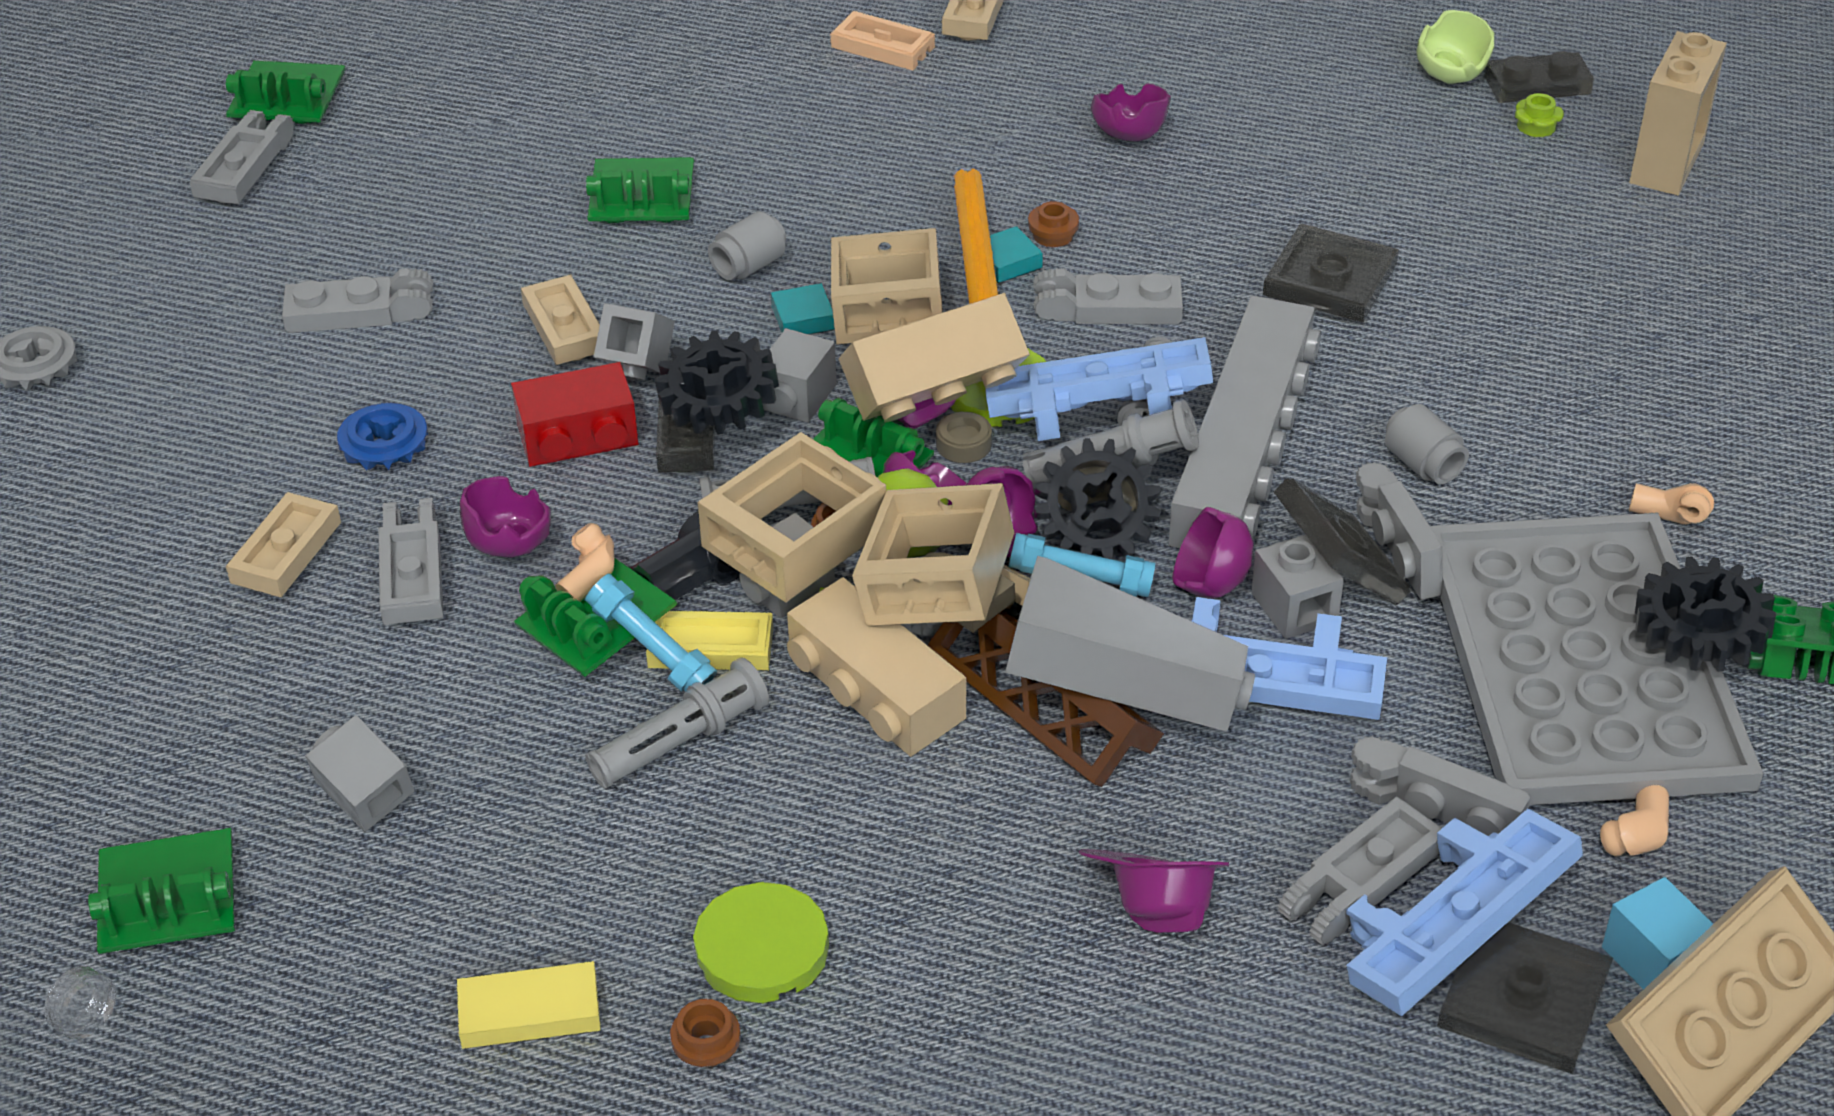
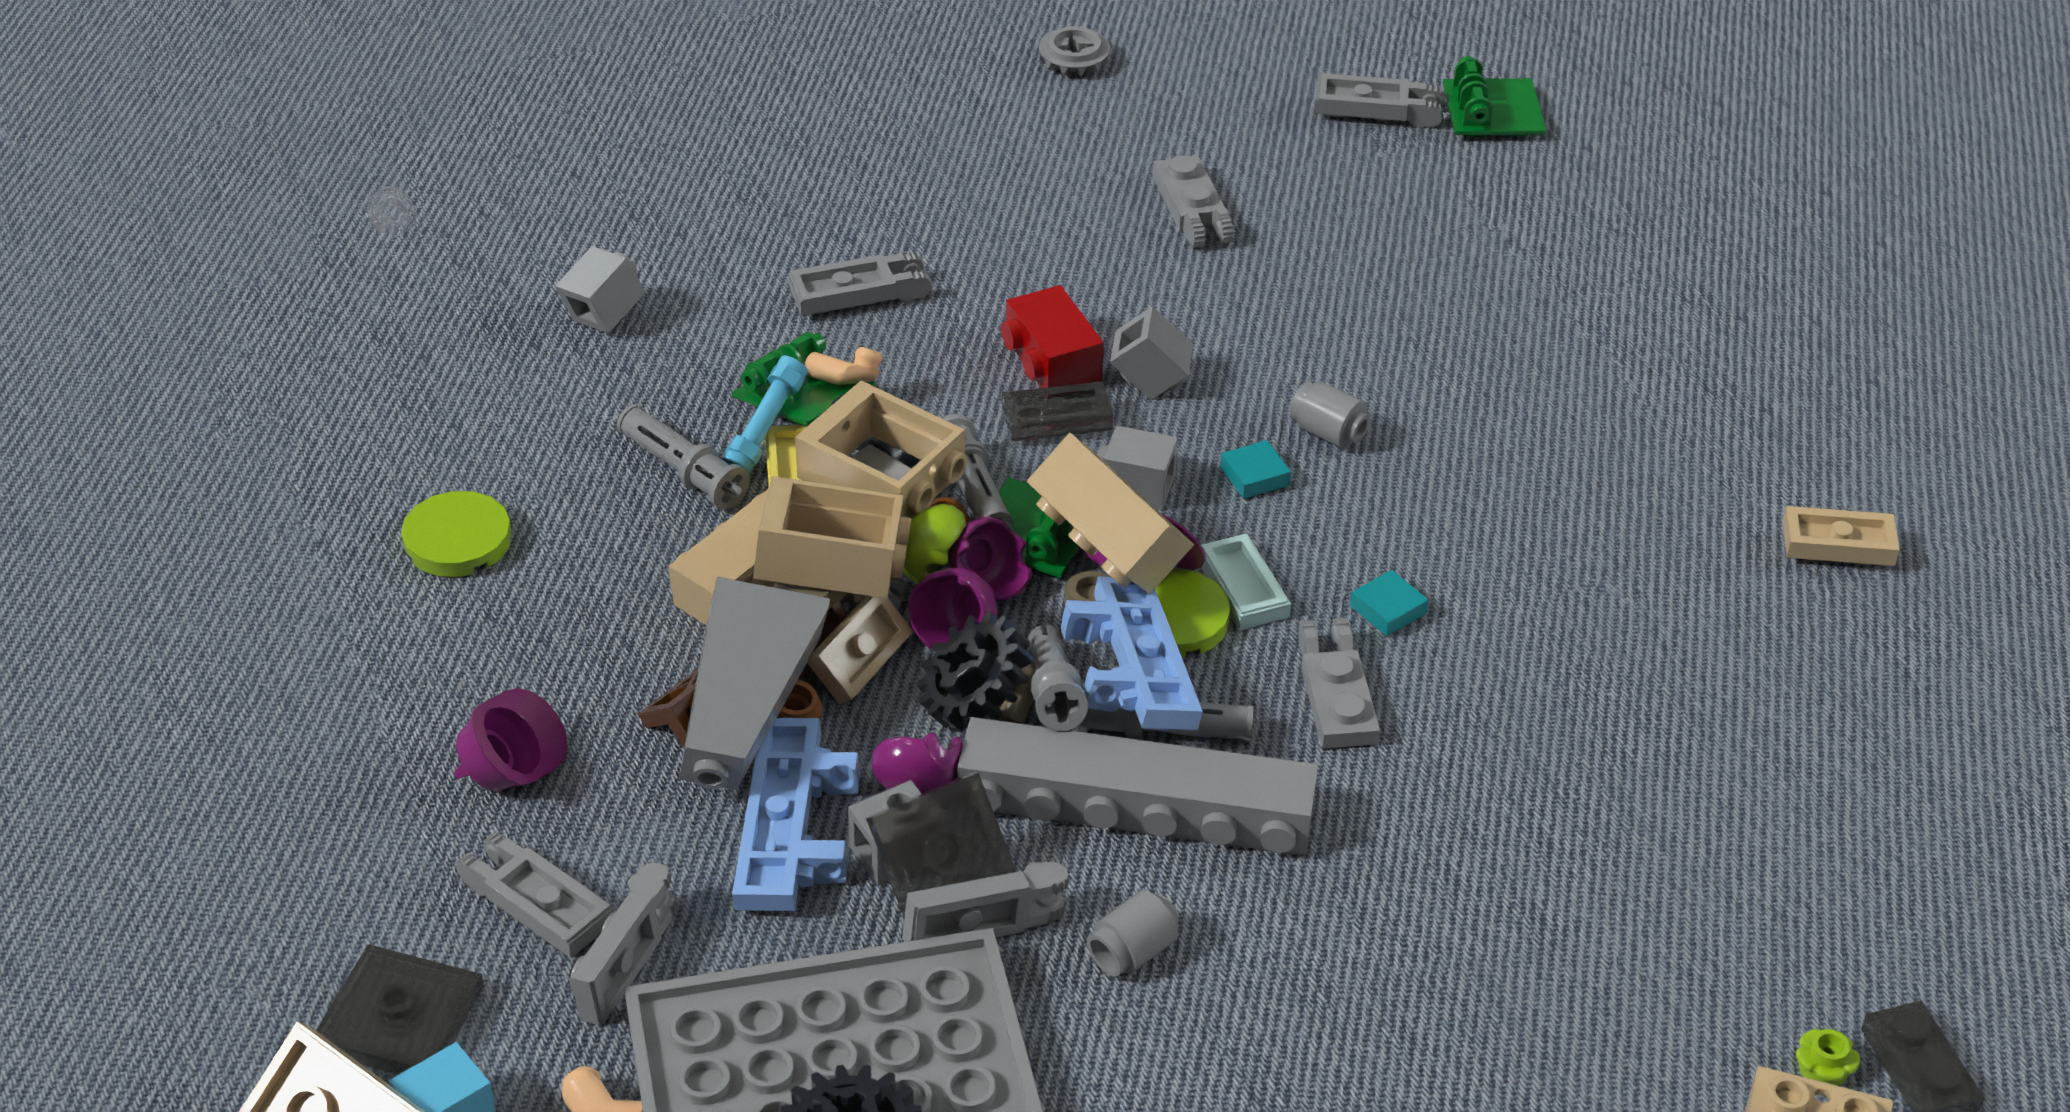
camera: 80 degrees right, 0 degrees up
(164, 891) = (501, 231): green hinge -> none
(283, 544) = (866, 215): tan plate -> none
(384, 421) = (1011, 233): blue gear -> none
(501, 520) = (905, 316): magenta hair -> none
(528, 1005) = (396, 422): light yellow tile -> none
(562, 318) = (1204, 312): tan plate -> none
(640, 189) = (1413, 339): green hinge -> none
(701, 1019) = (362, 511): dark orange plate -> none
(717, 382) = (1079, 399): black gear -> none
(866, 275) = (1236, 475): tan window -> none
(882, 40) = (1745, 503): light nougat tile -> none
(975, 235) = (1329, 569): light orange axle -> none
(1053, 224) = (1450, 632): dark orange plate -> none
(1131, 116) = (1662, 668): magenta hair -> none
(1133, 575) = (908, 643): medium azure bar -> none
(1331, 272) = (1424, 856): clear smoke plate -> none
(1455, 47) = (1917, 958): yellowish green hair -> none
(1492, 884) = (449, 934): light blue hinge -> none

